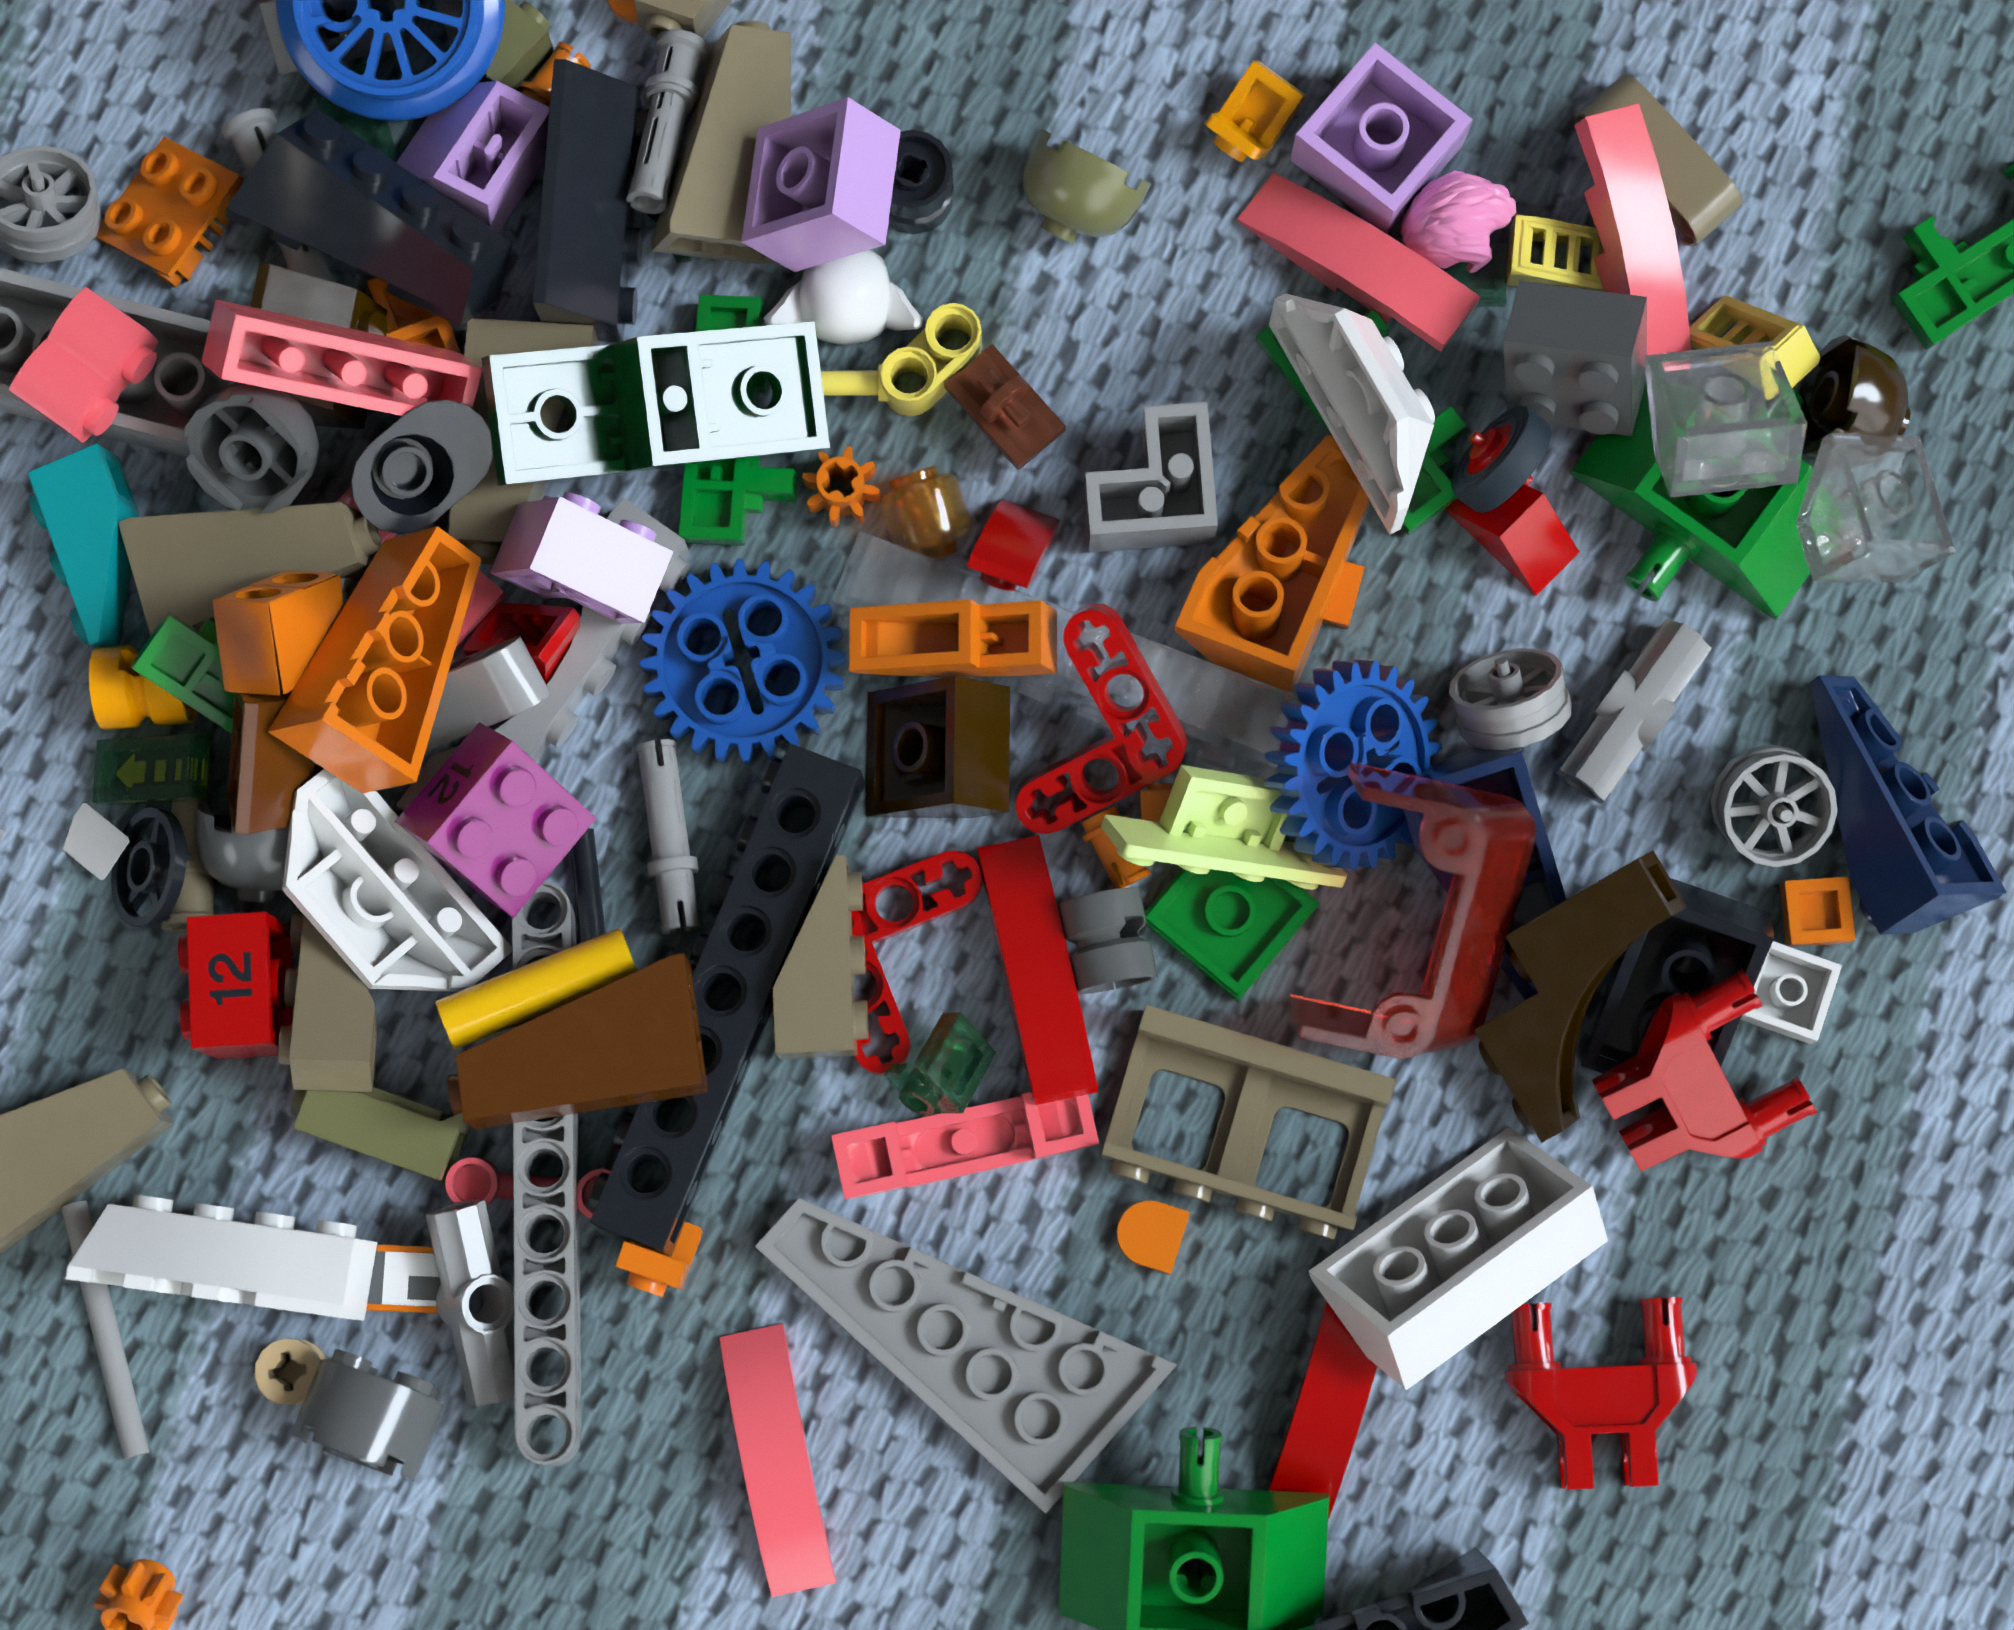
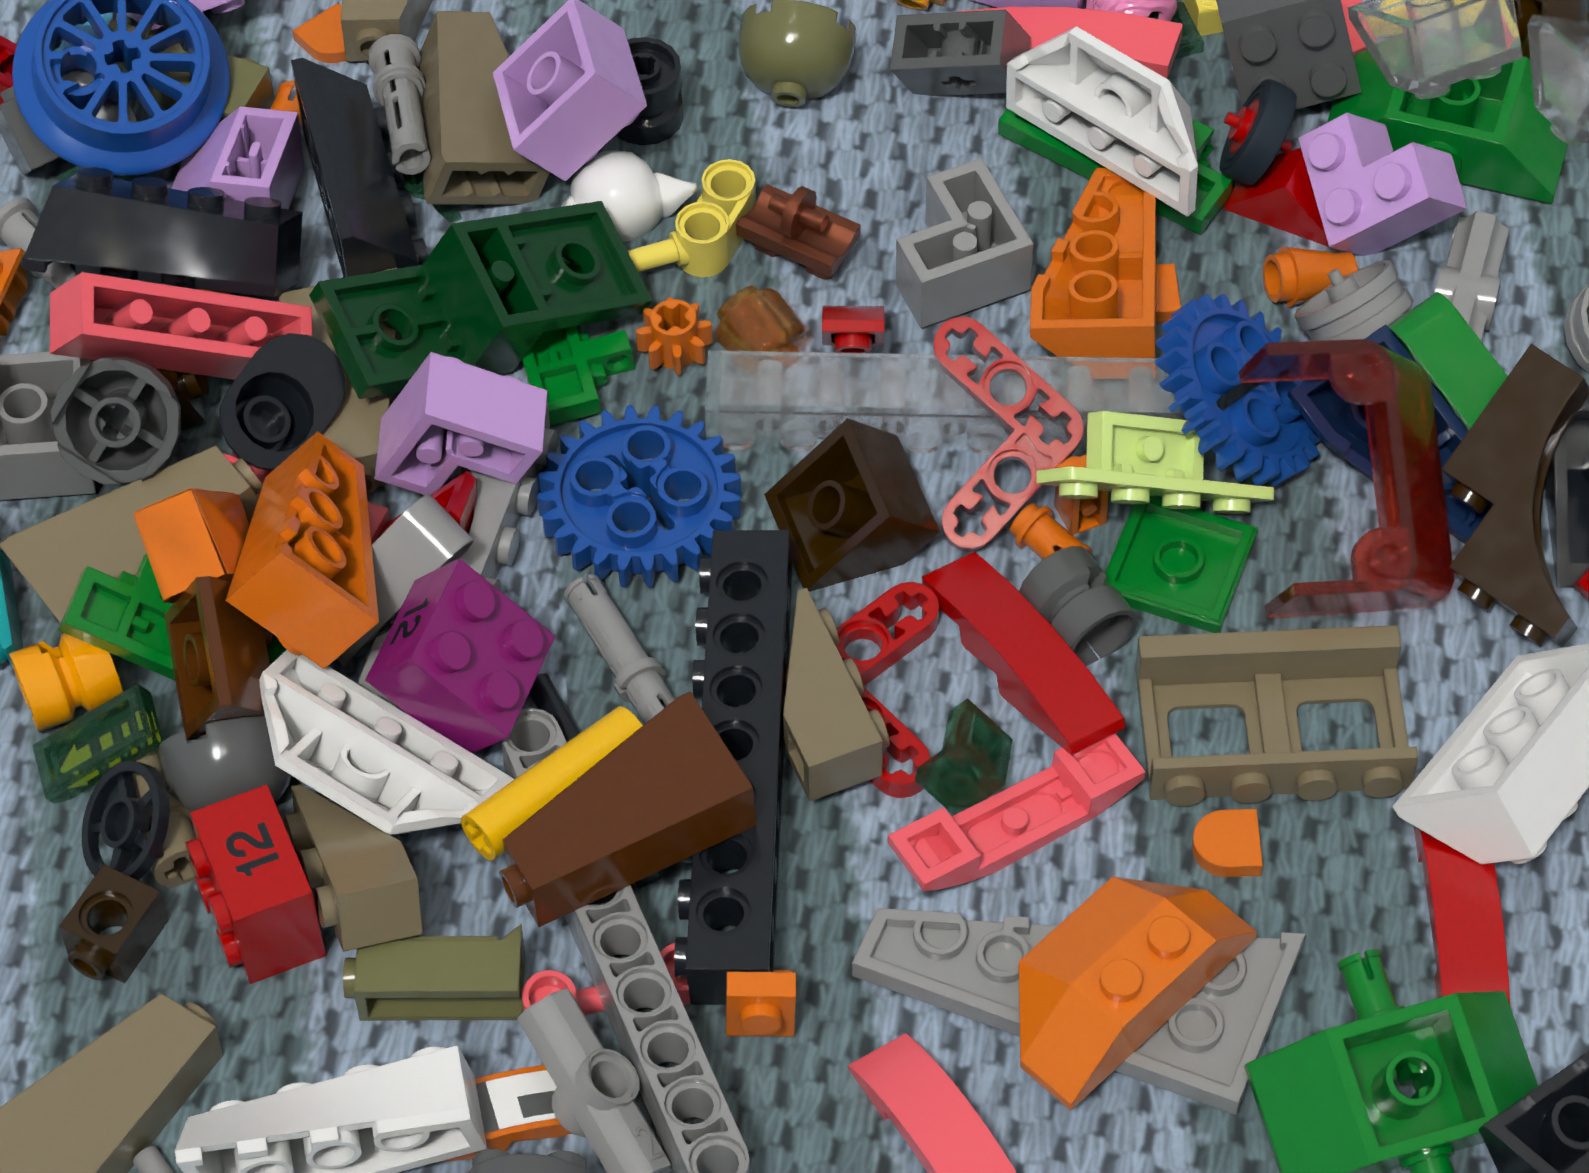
camera: 20 degrees left, 25 degrees down
(94, 841) = (59, 830): white sticker -> none
(136, 961) = (110, 902): none -> dark brown brick
(954, 639) = (829, 387): orange slope -> none
(985, 1356) = (1117, 977): none -> orange wedge
(1241, 250) = (956, 51): none -> dark grey brick
(1487, 626) = (1300, 274): none -> orange cone
(1574, 811) = (1451, 356): none -> green beam
(1580, 566) = (1374, 194): none -> lavender brick

